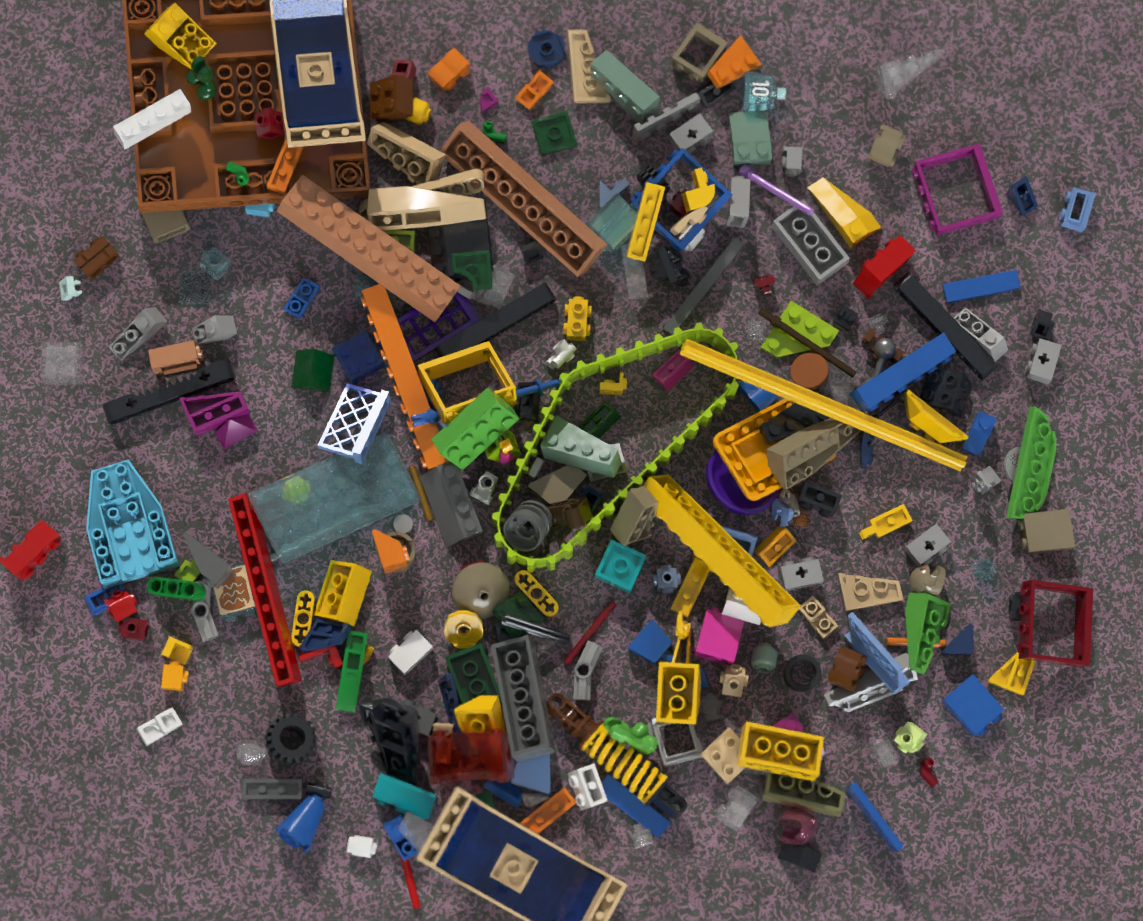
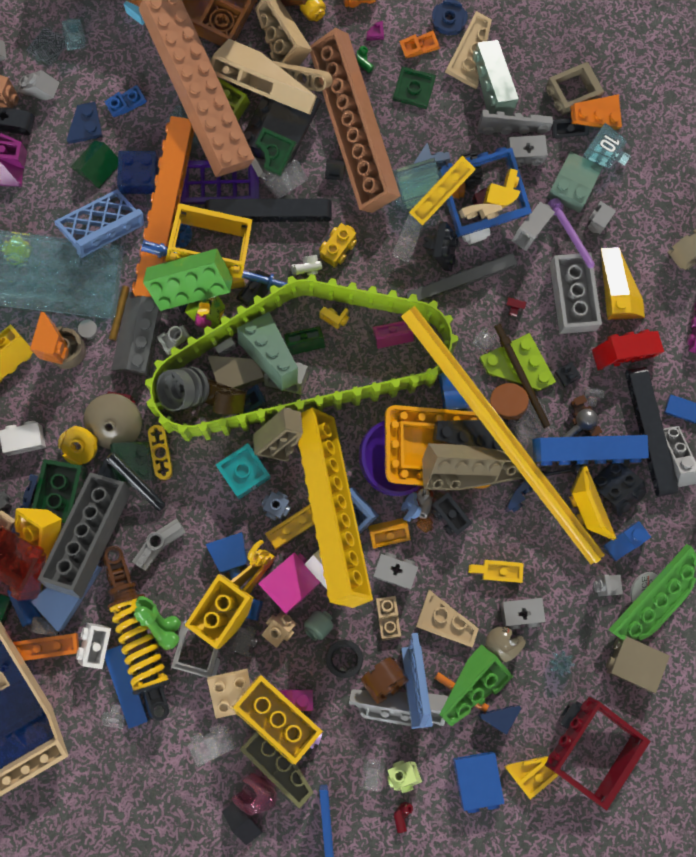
camera: 30 degrees right, 0 degrees up
(278, 339) = (85, 124): none -> dark blue wing
(590, 632) = (184, 513): dark red bar -> none

